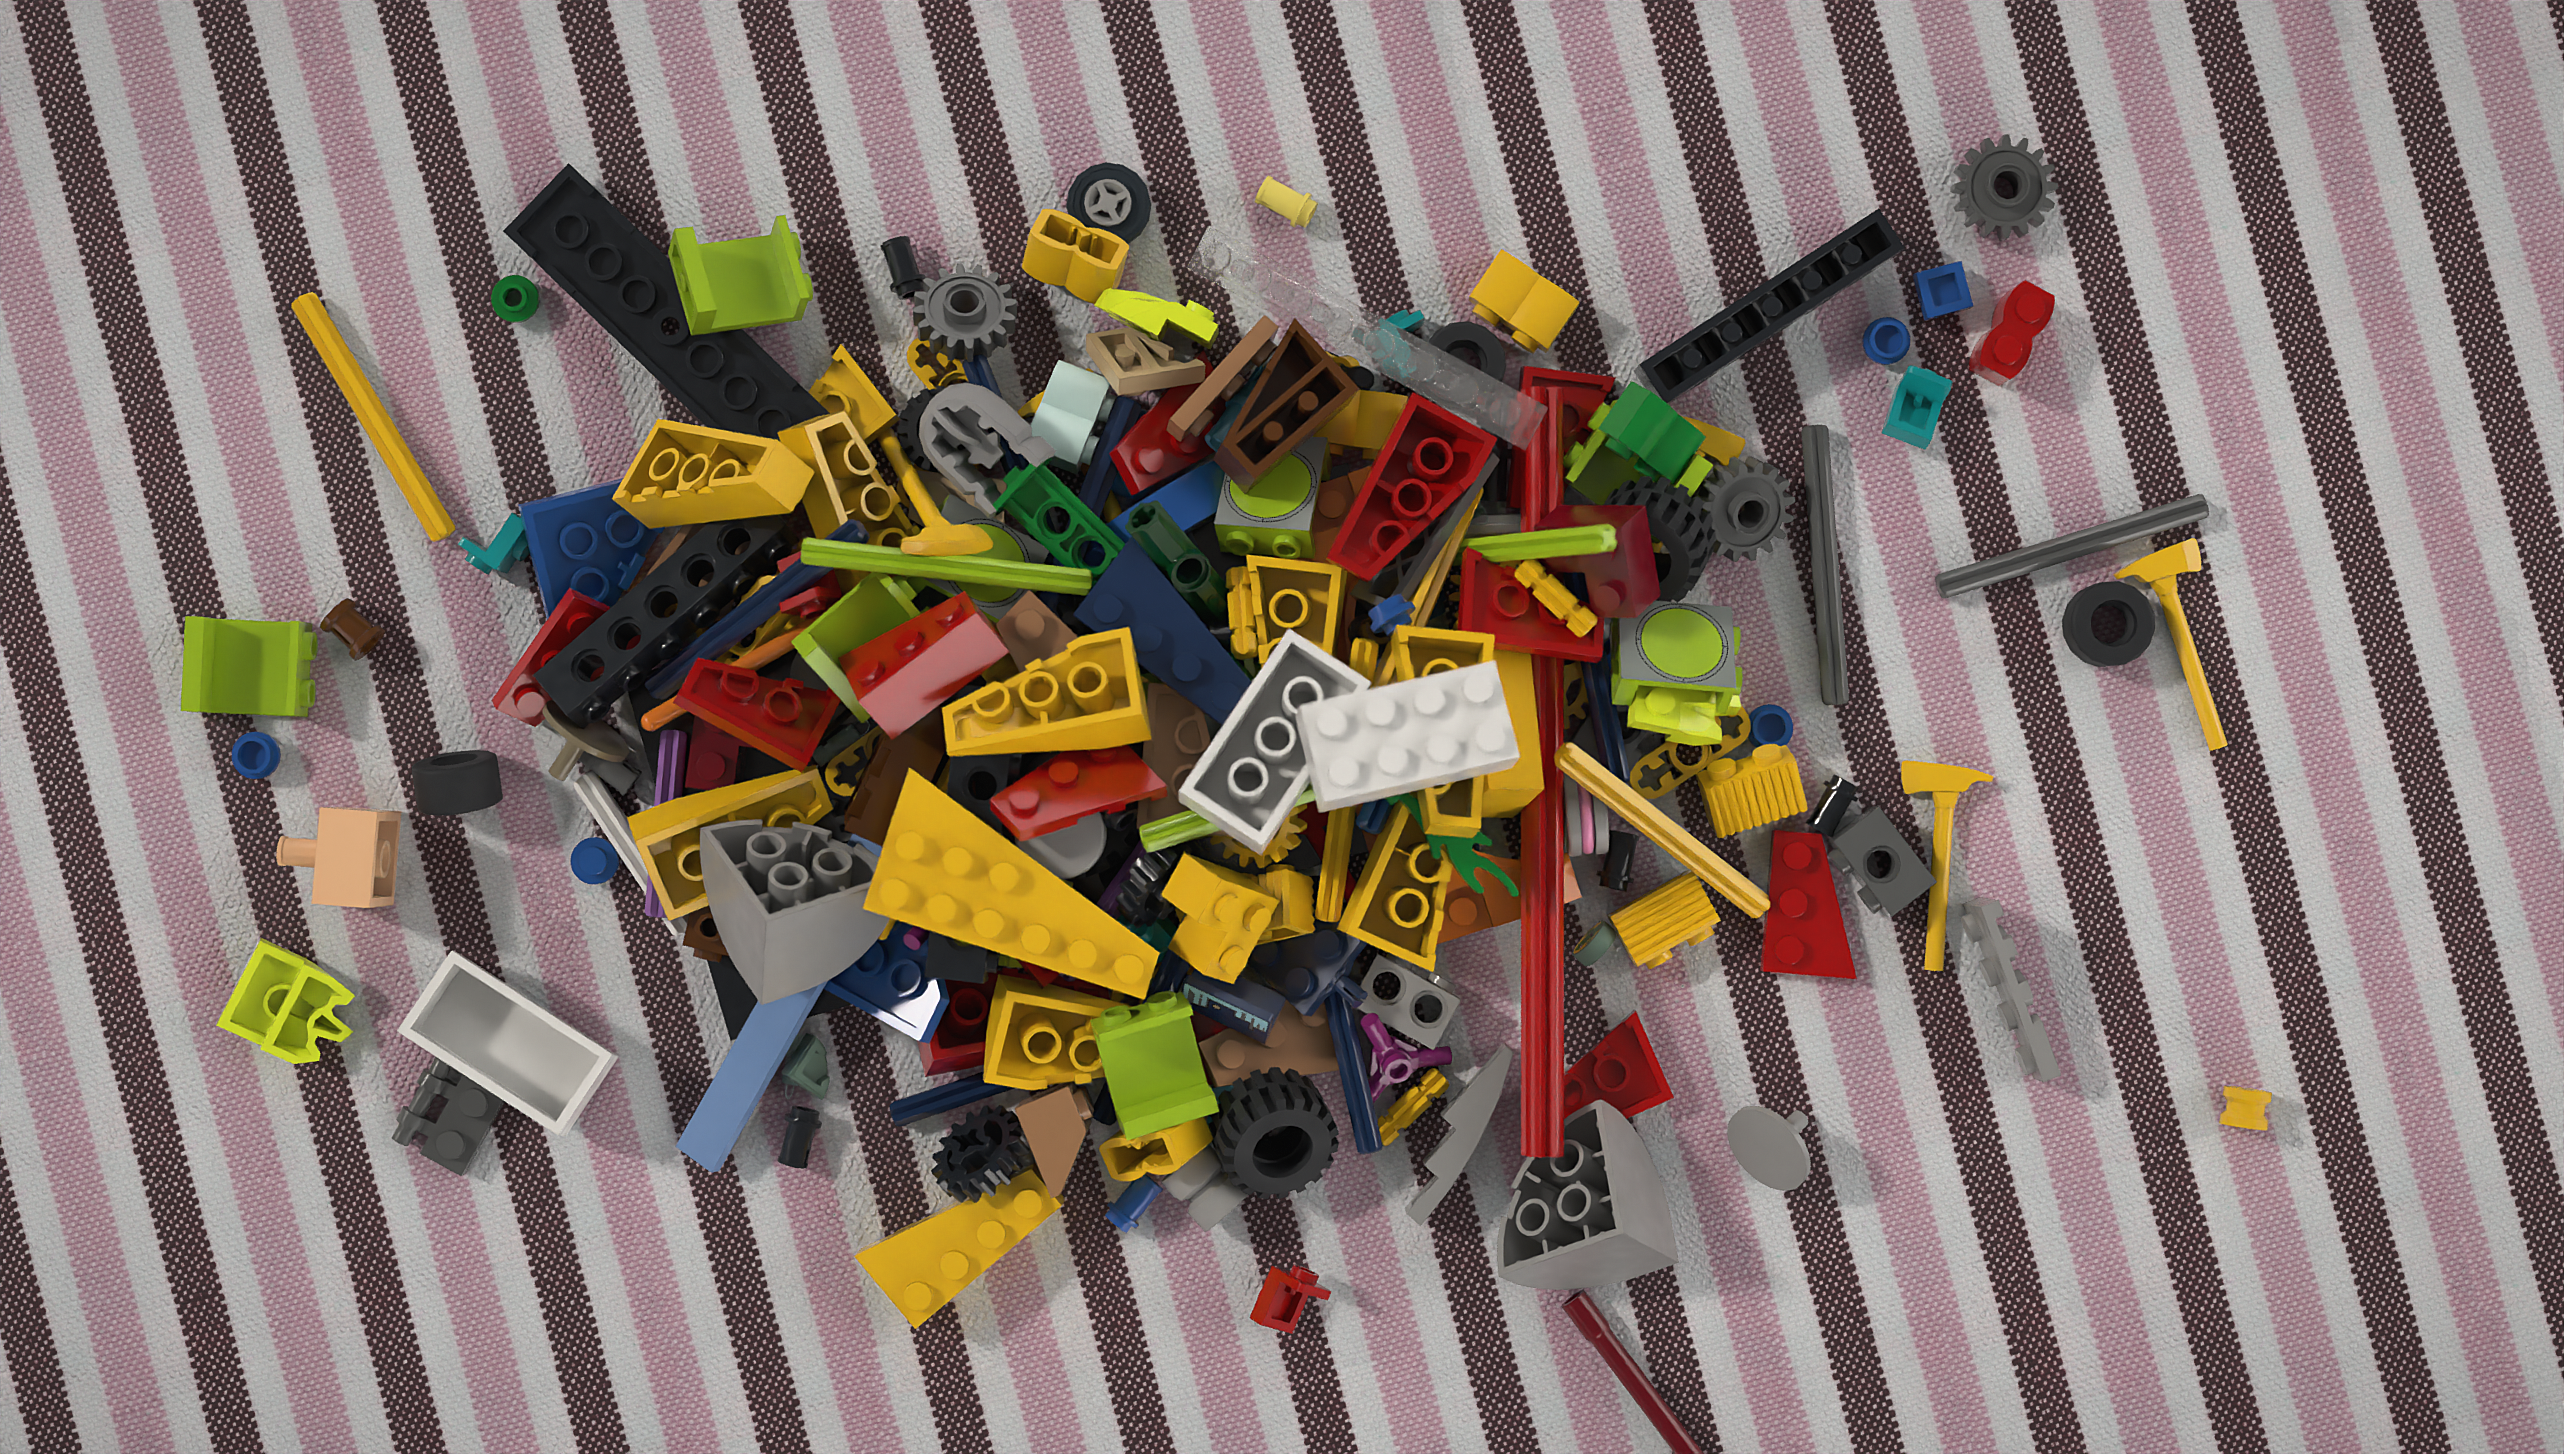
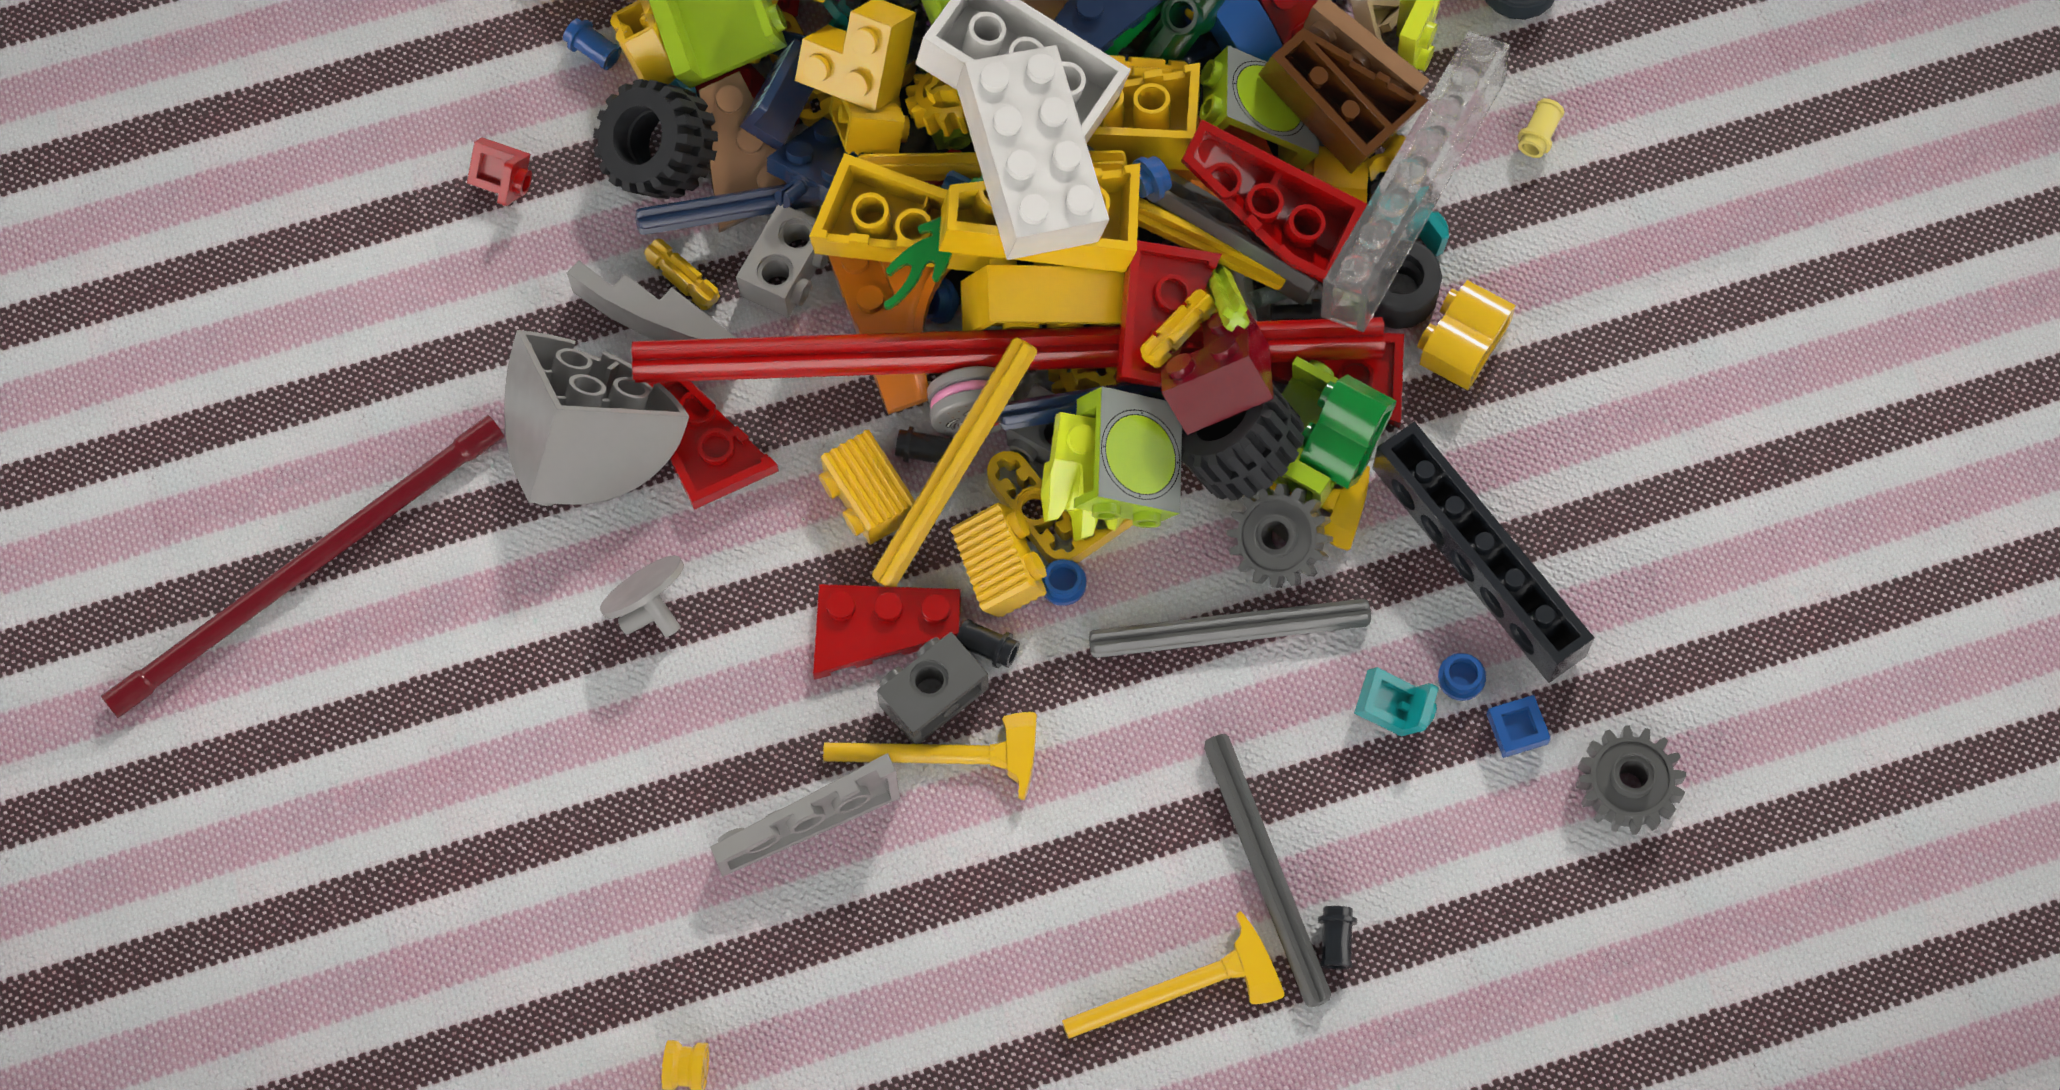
camera: 90 degrees right, 20 degrees down
(1205, 1187) = (589, 96): light grey wheel -> none
(1394, 1058) = (726, 252): magenta piece -> none
(1594, 943) = (840, 424): sand green tile -> none
(2015, 321) = (1471, 787): red brick -> none
(2138, 630) = (1197, 874): black tyre -> none
(2139, 483) = (1337, 937): none -> black pin

